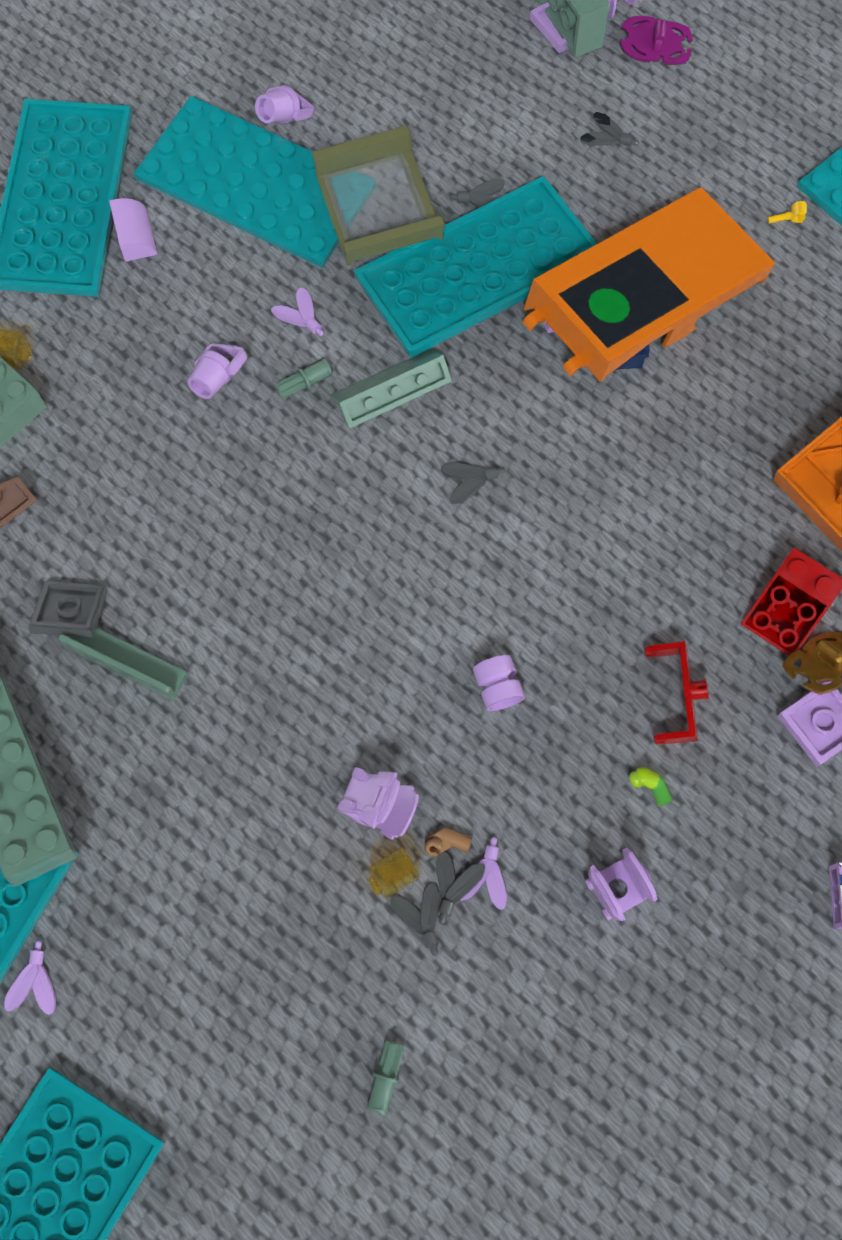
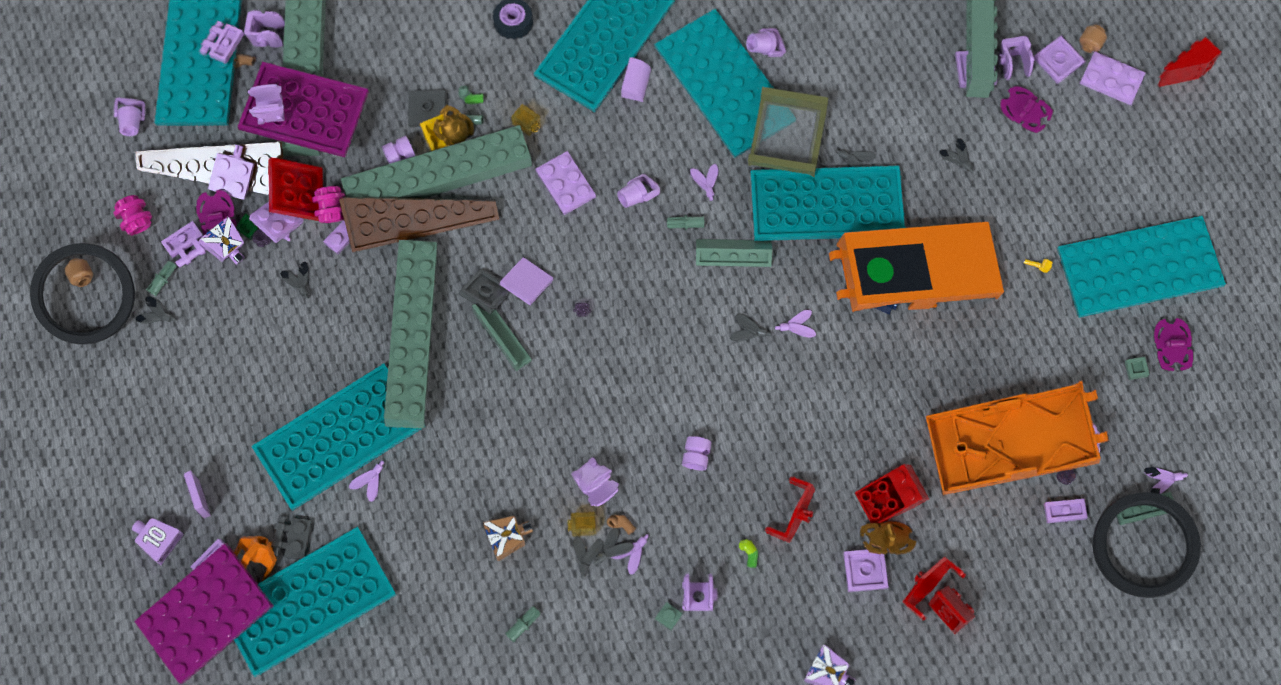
camera: 30 degrees right, 0 degrees up
(107, 407) = (565, 183): none -> lavender plate
(121, 566) = (526, 281): none -> lavender tile
(223, 565) = (582, 309): none -> clear purple plate
(288, 954) = (506, 535): none -> torso
(529, 443) = (795, 326): none -> lavender piece
(592, 942) = (668, 616): none -> sand green plate

